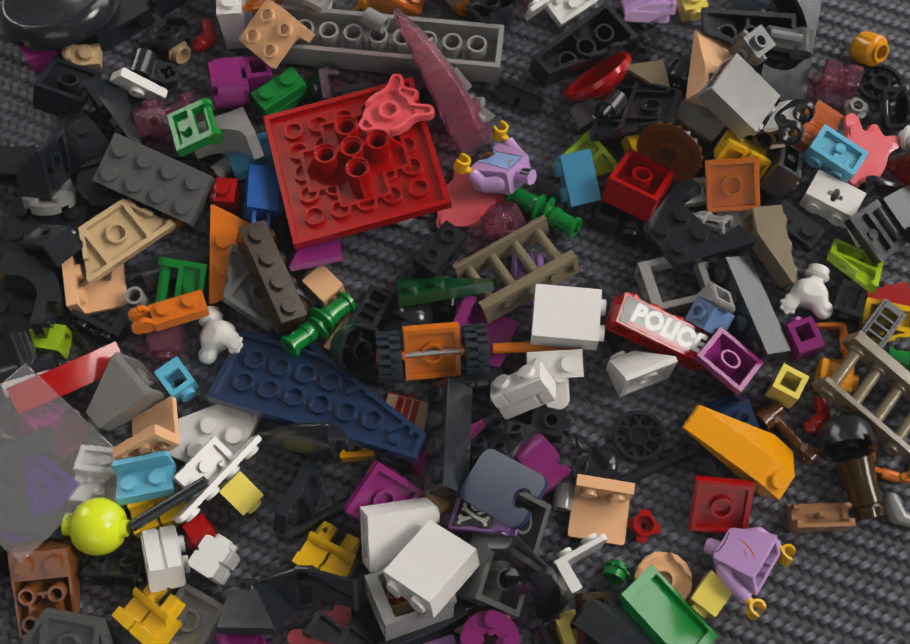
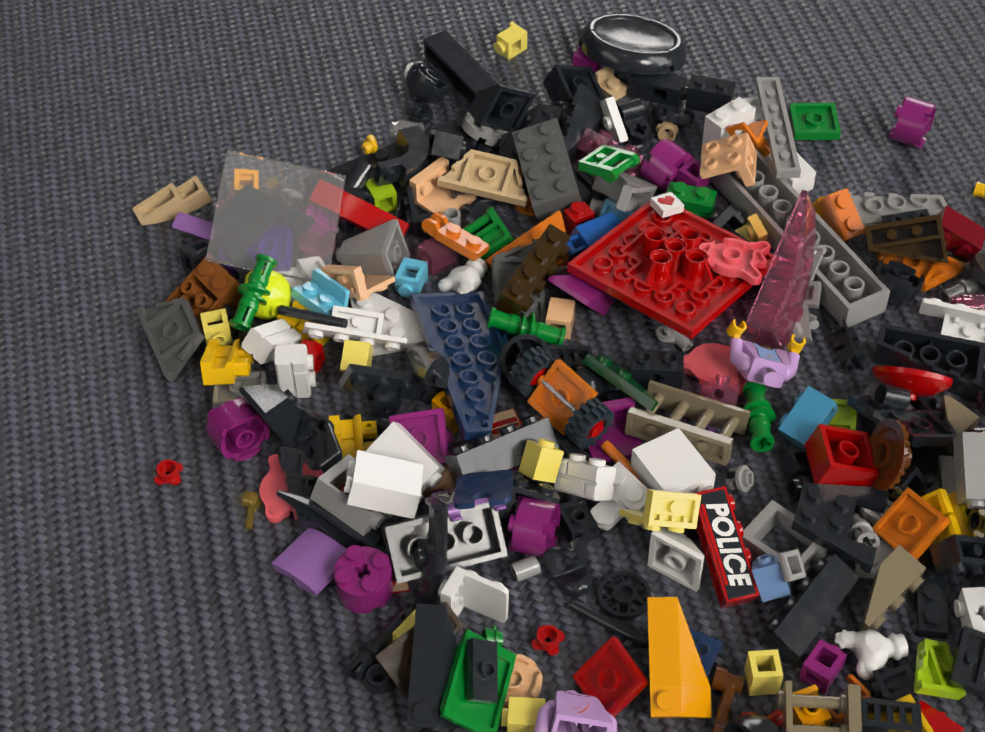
camera: 55 degrees right, 20 degrees down
(101, 543) = (253, 292): none -> green piece
(106, 601) = (216, 331): none -> light yellow brick
(206, 38) = (691, 139): red arm -> none
(285, 117) = (666, 204): none -> white tile
(353, 72) = (753, 230): none -> light yellow bracket
(483, 414) = (541, 460): none -> light yellow brick
(594, 267) = (741, 478): none -> light grey plate
(600, 508) = (538, 597): light nougat bracket -> none
(614, 362) = (667, 510): none -> light yellow bracket
(663, 607) = (482, 671): none -> black plate
(729, 361) = (740, 609): magenta slope -> none

